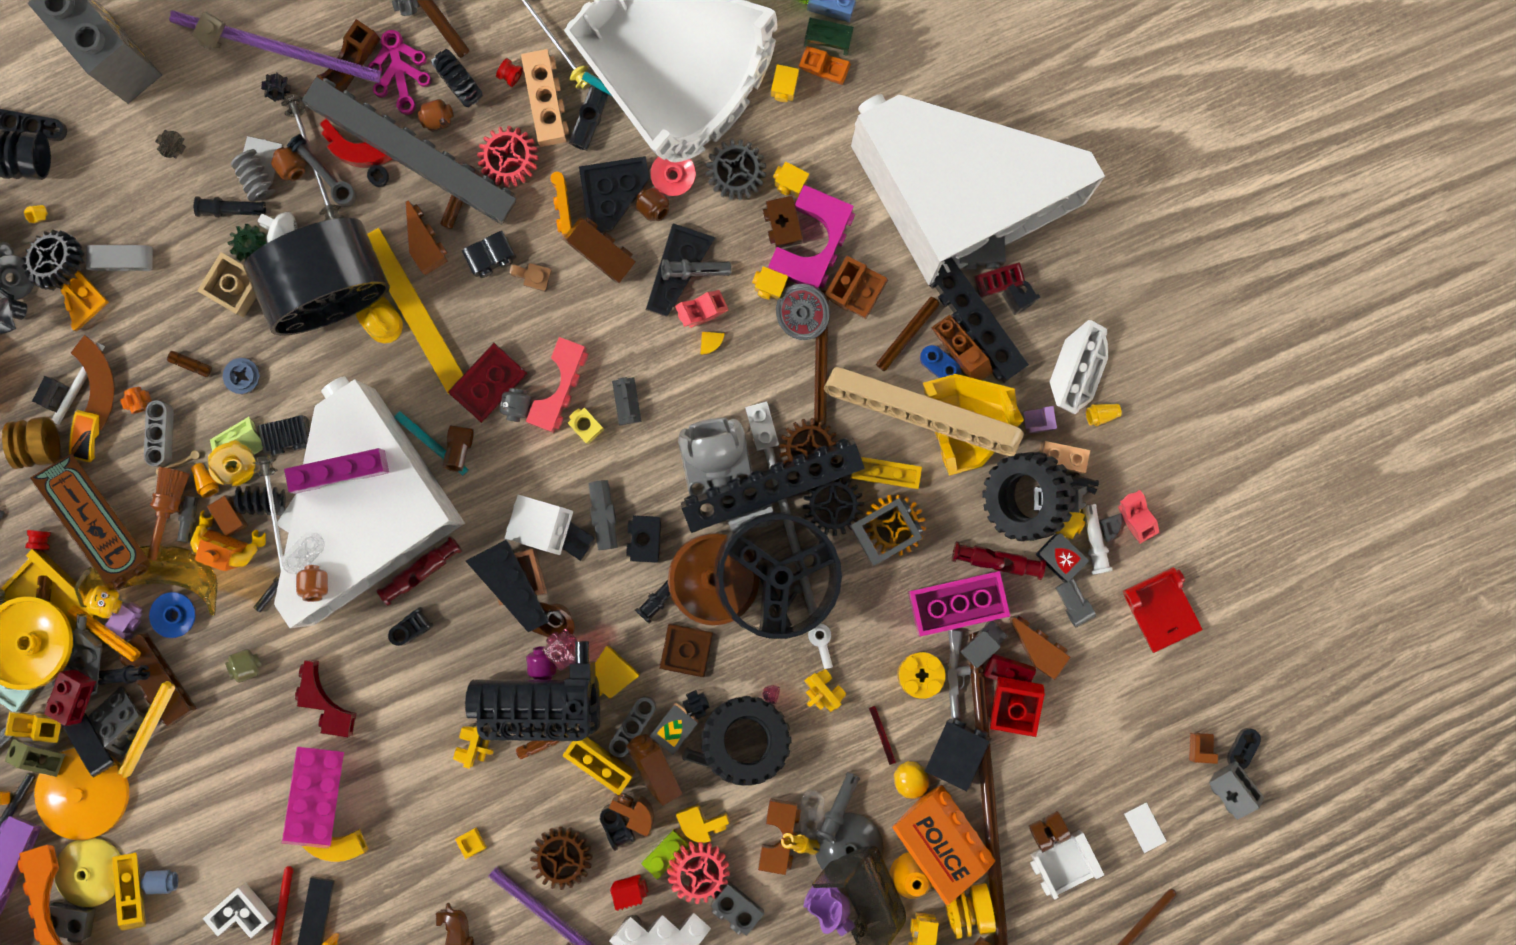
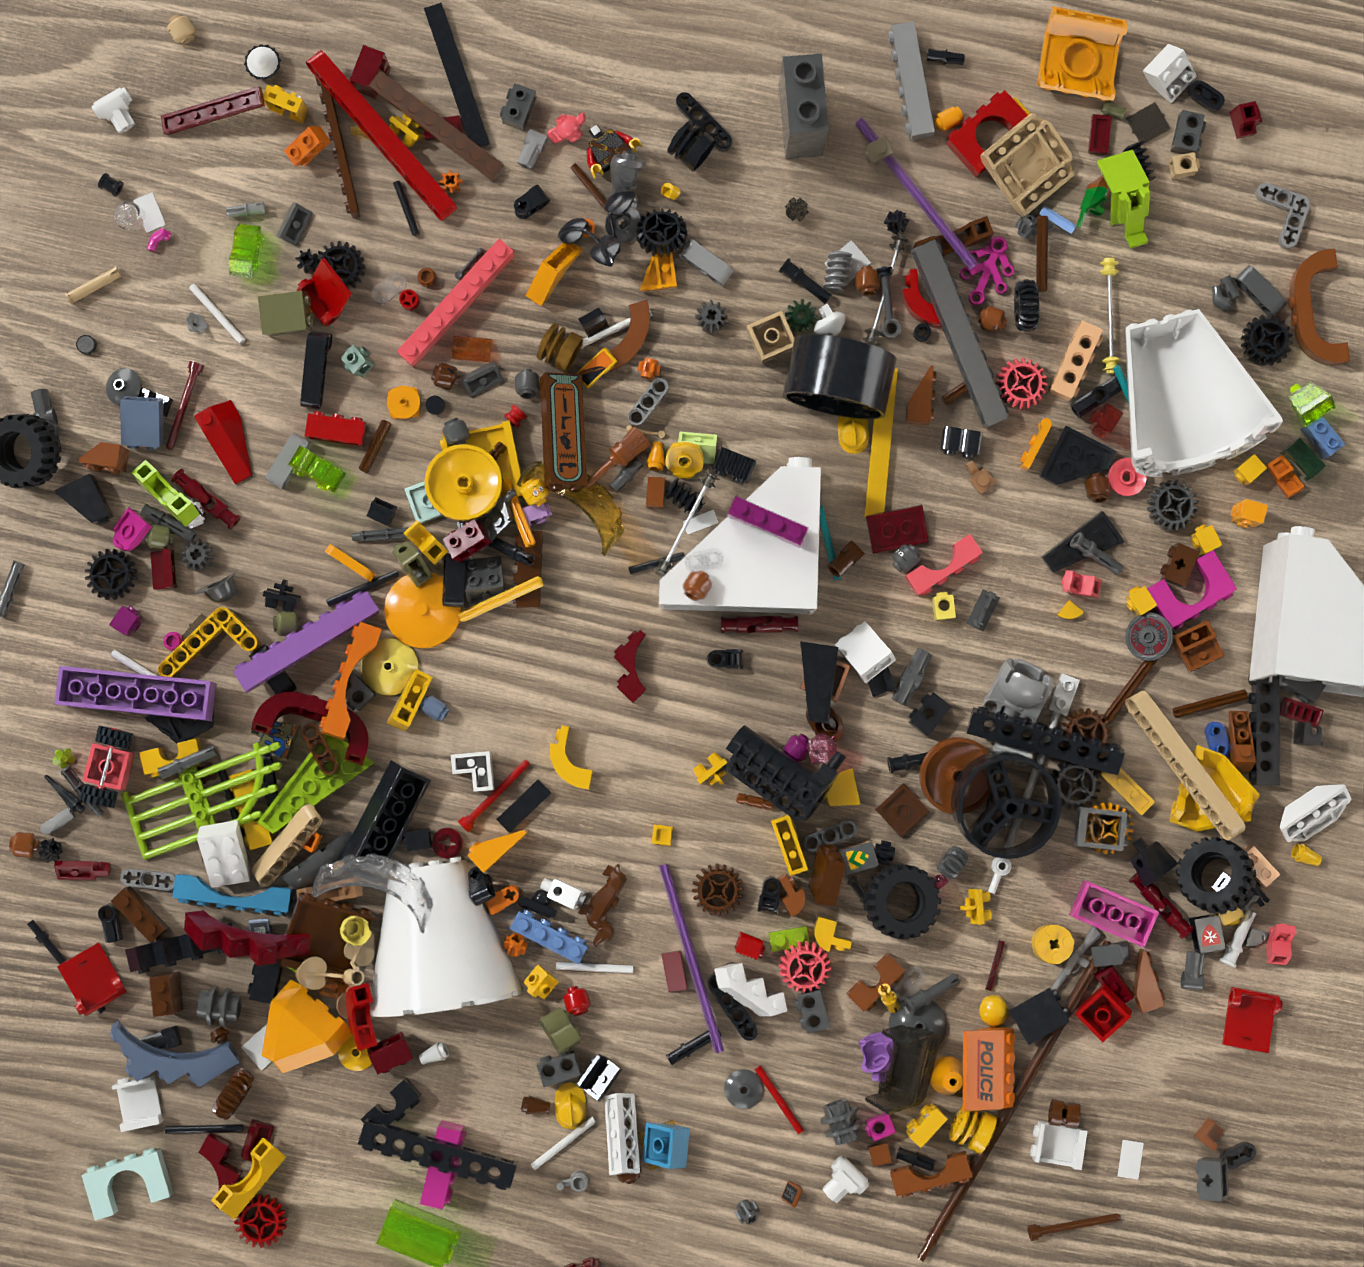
camera: 30 degrees right, 0 degrees up
(26, 500) = (527, 384): none -> dark grey head
(152, 306) = (719, 317): none -> dark grey gear
(161, 615) = (570, 523): blue dish -> none
(189, 363) = (702, 369): reddish brown axle -> none
(221, 550) = (635, 512): torso -> none
(231, 379) = (734, 394): sand blue gear -> none
(243, 665) = (594, 602): olive head -> none
(312, 797) = (582, 727): dark pink brick -> none
(509, 72) = (1064, 326): red wheel -> none
(599, 249) = (1040, 493): reddish brown brick -> none
(611, 135) = (1104, 420): none -> clear red brick
(768, 666) = (952, 862): none -> dark grey gear
(812, 125) = (1248, 513): none -> light orange brick
(958, 526) = (1151, 861): none -> black torso
(1040, 420) = (1259, 829): lavender panel -> none

